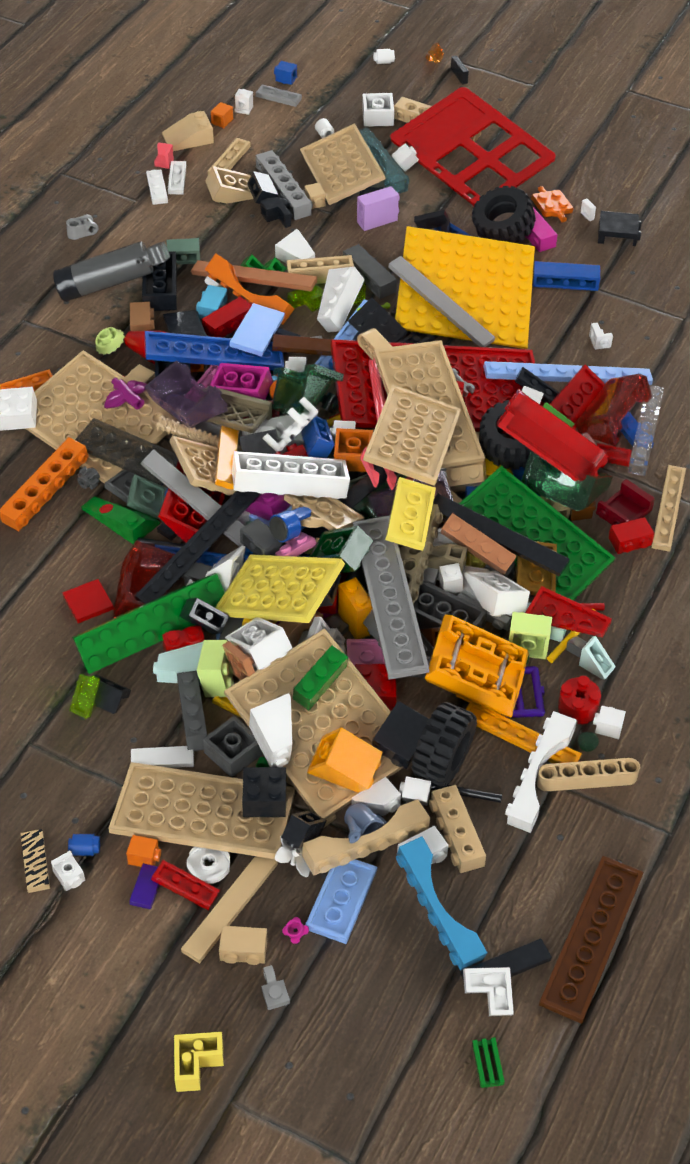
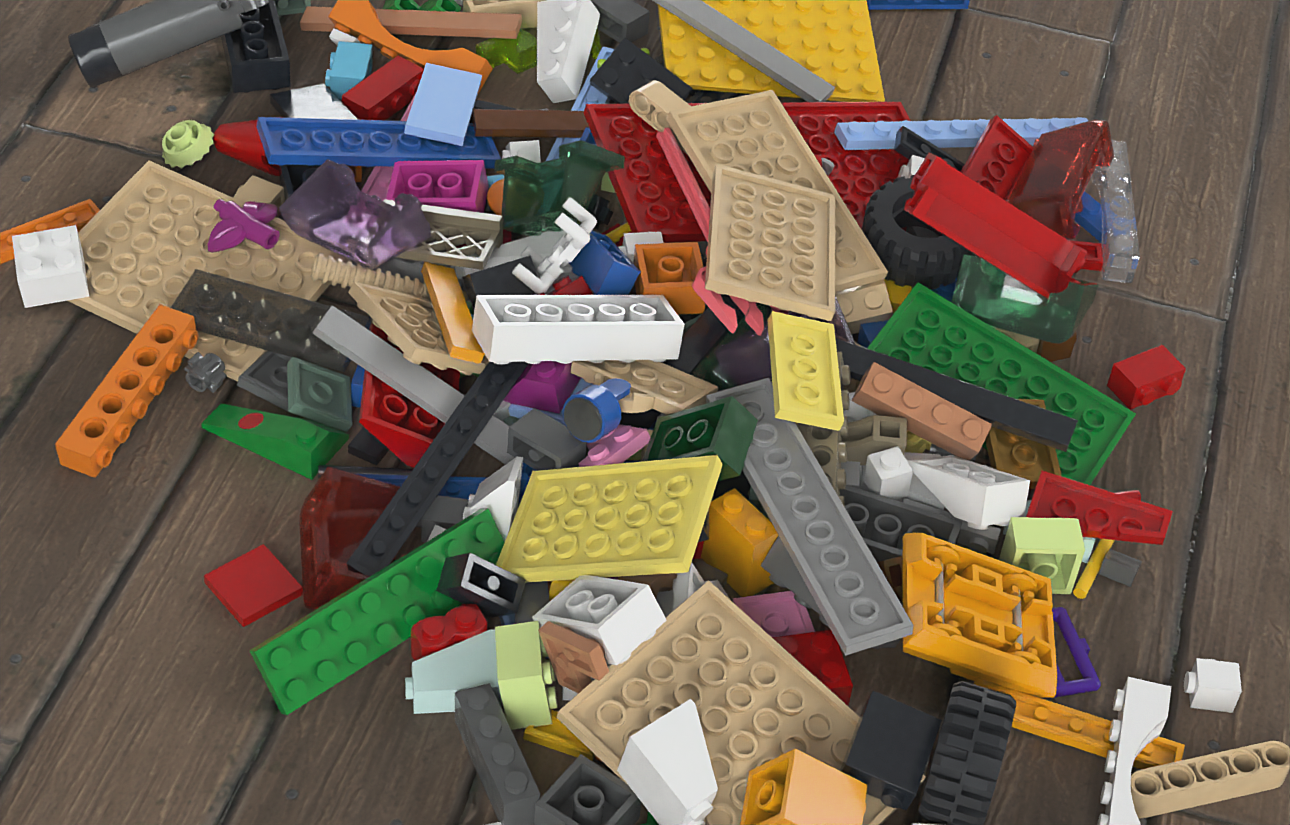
camera: 15 degrees left, 5 degrees down
(84, 695) = (293, 754): clear neon green plate -> none
(110, 695) = (324, 746): black panel -> none
(141, 316) = (233, 100): medium nougat brick -> none
(320, 677) = (727, 665): green brick -> none
(579, 699) = (1154, 650): red brick -> none
(588, 741) = (1187, 723): clear green plate -> none
(596, 659) = (1158, 584): light aqua slope -> none
(598, 337) = (993, 78): white bracket -> none
(626, 505) = (1121, 329): dark red panel -> none
(668, 508) = (1187, 328): tan tile -> none

